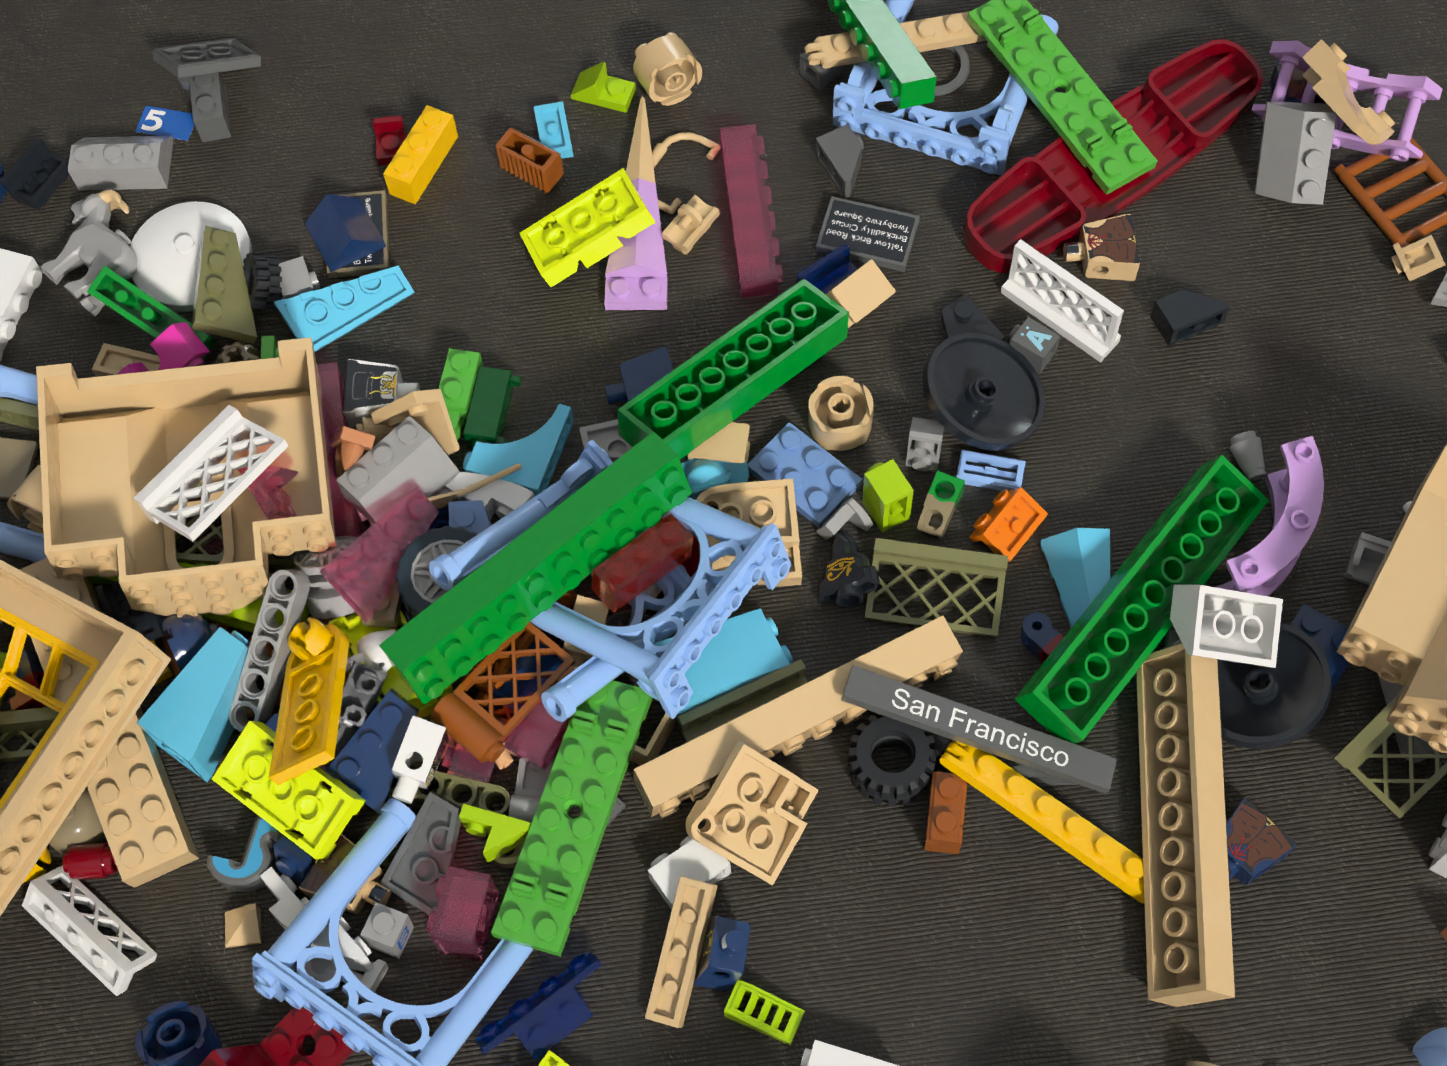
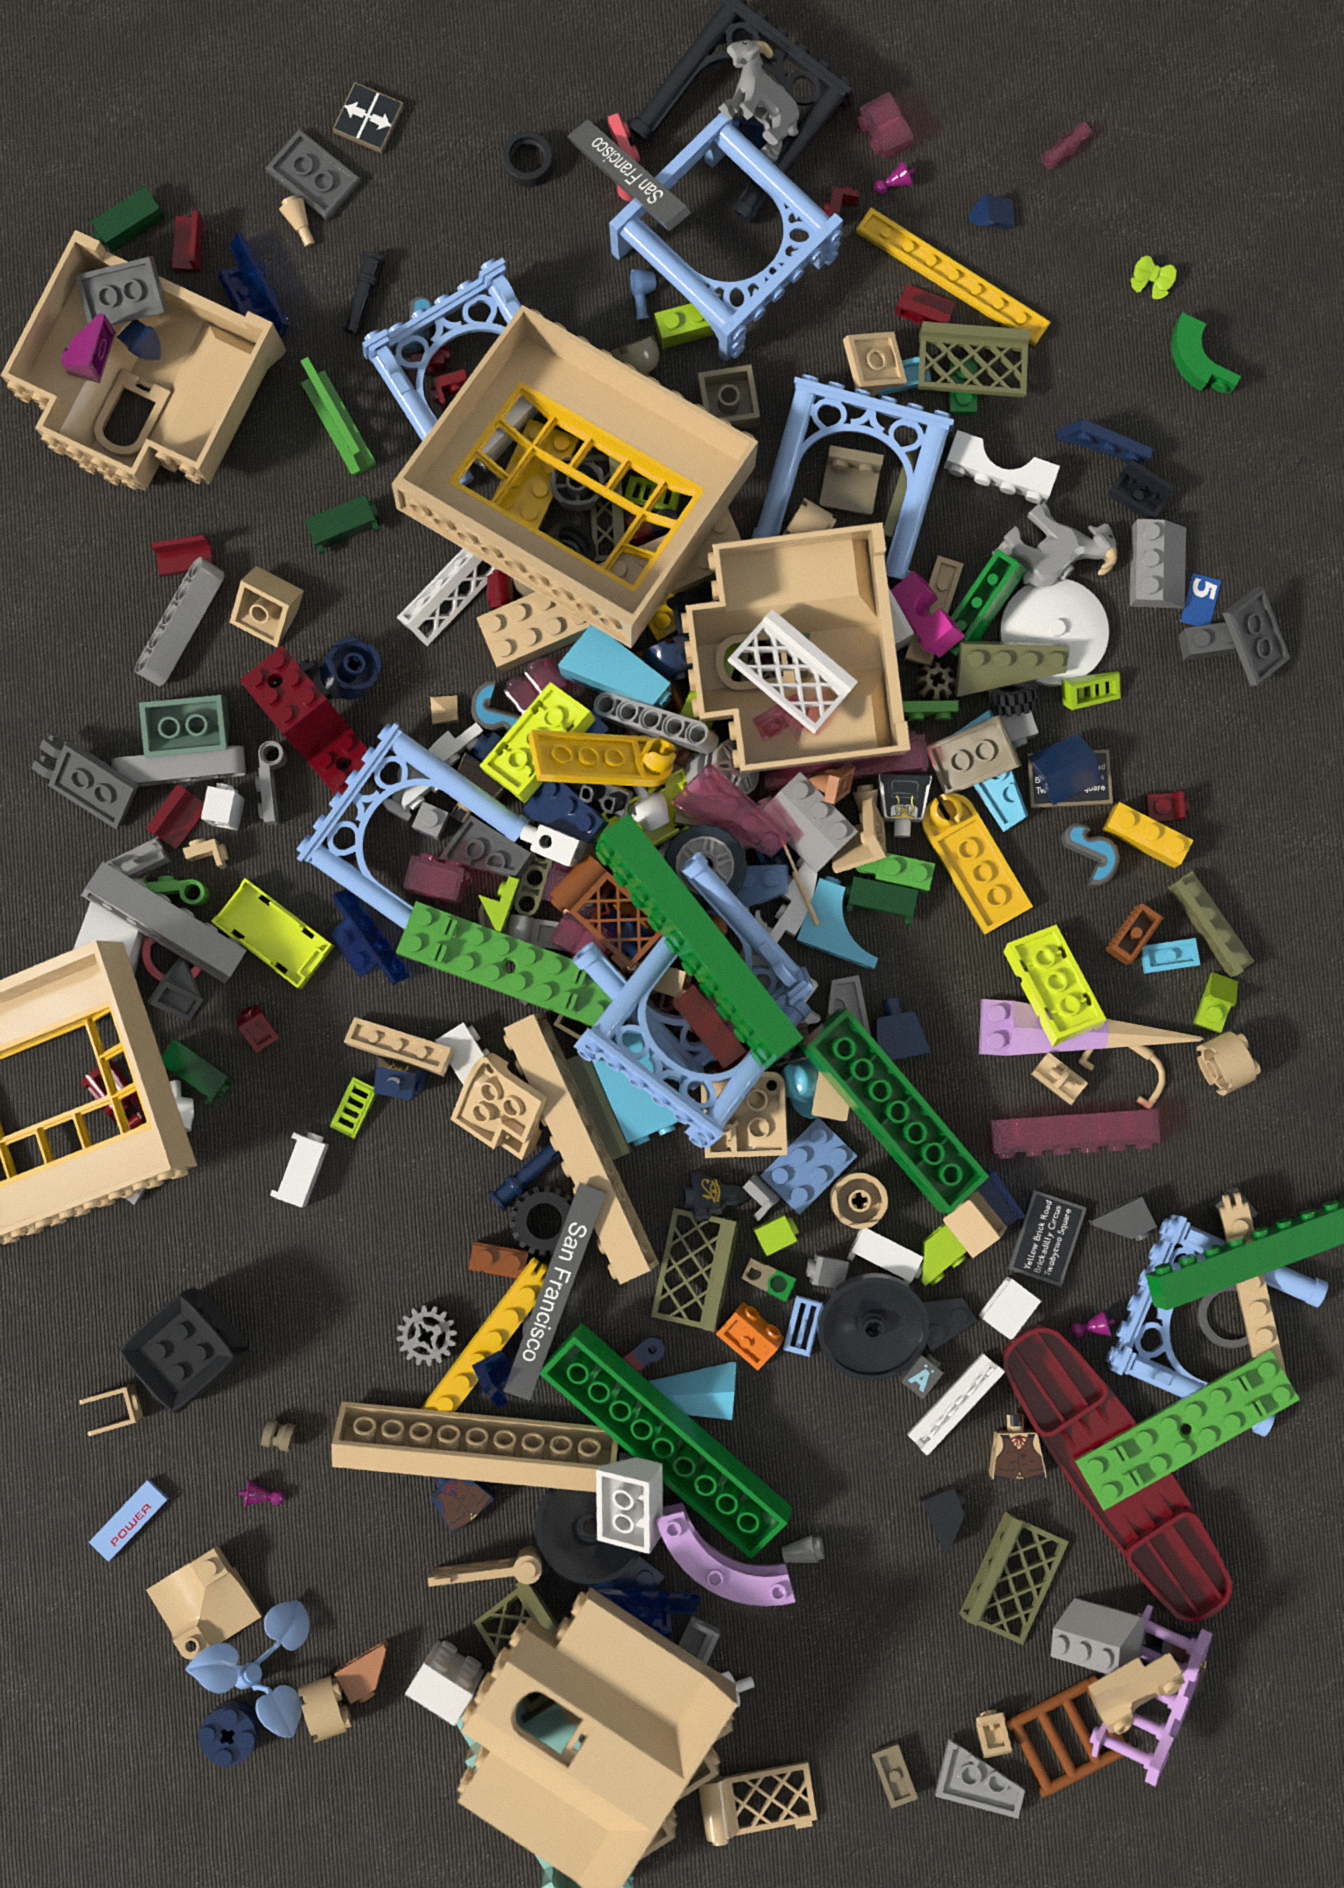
camera: 90 degrees right, 20 degrees up
(221, 813) = (525, 689): none -> clear pink brick
(257, 219) = (1073, 690): none -> lime slope
(326, 313) = (973, 755): none -> tile
(436, 199) = (1096, 848): none -> dark grey animal
(449, 319) = (974, 862): none -> yellow plate
(520, 97) = (1211, 924): none -> olive fence
(849, 800) = (516, 1183): none -> dark blue pin
(894, 334) = (939, 1252): none -> lime slope
(899, 386) = (886, 1254): none -> white brick
(947, 260) = (1009, 1308): none -> white piece
(957, 178) = (1098, 1325): none -> magenta piece
(1056, 911) = (432, 1347): none -> light grey gear
(1096, 810) = (491, 1373): none -> clear blue panel
(1238, 265) = (991, 1574): none -> olive fence
(1318, 762) = (525, 1568): none -> tan piece
(1341, 608) = (652, 1607): none -> clear blue bracket

